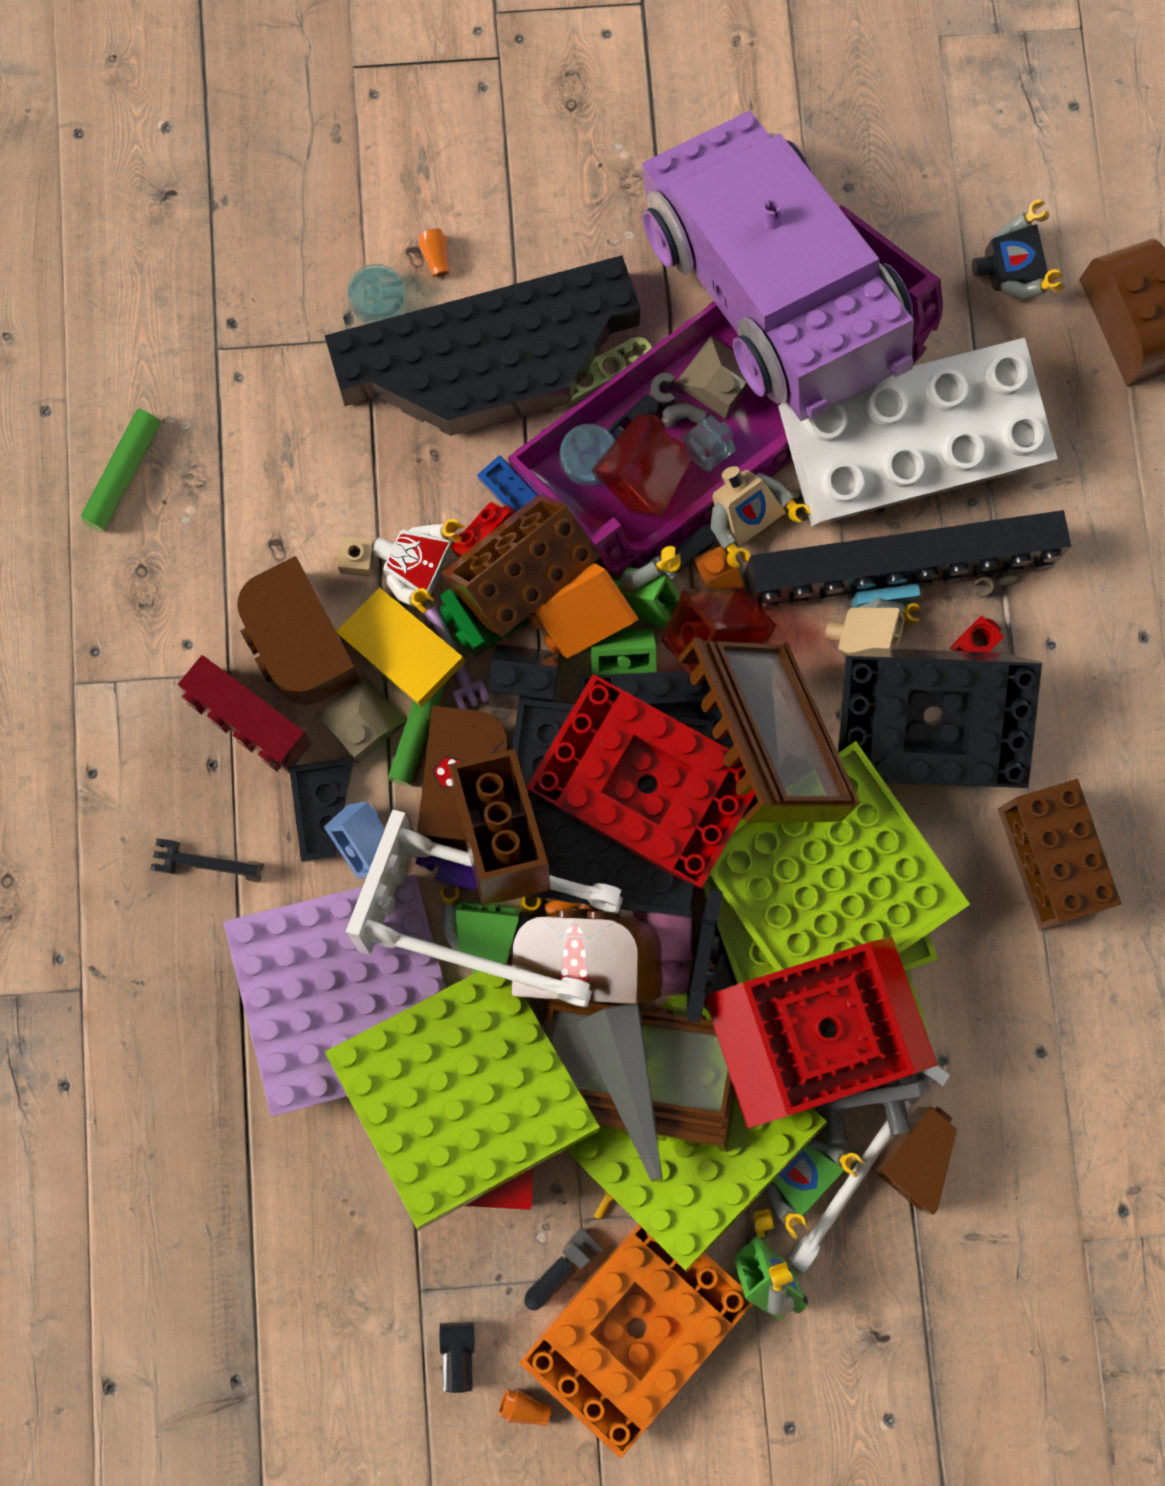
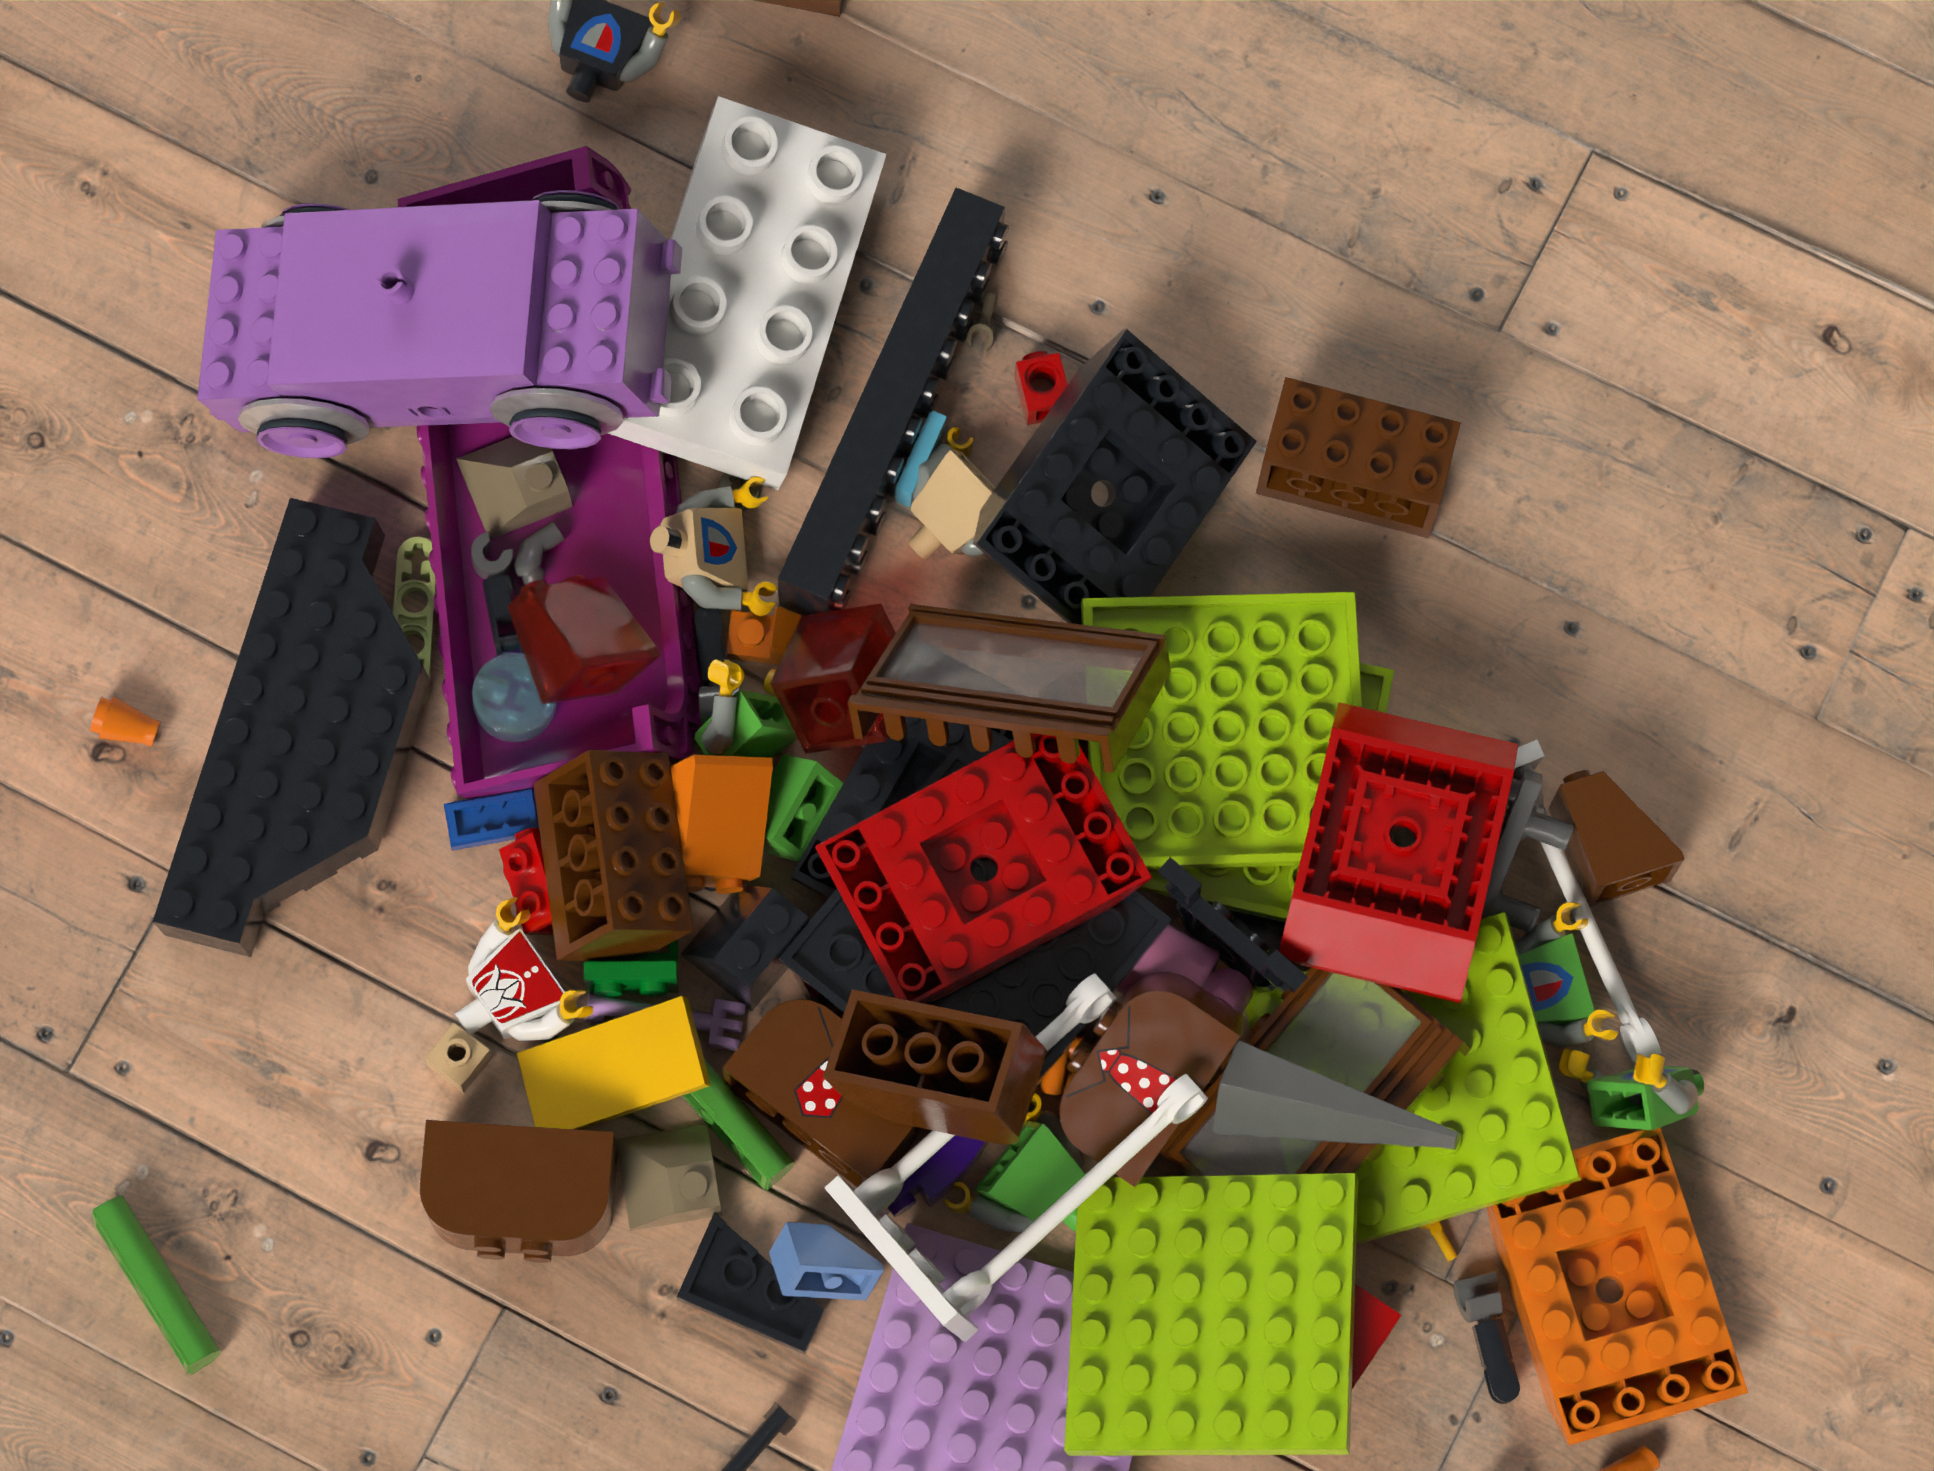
camera: 55 degrees left, 5 degrees down
(248, 716) = (580, 1309): dark red brick -> none
(376, 293) = (132, 829): clear light blue head -> none
(709, 443) = (596, 543): clear light blue brick -> none

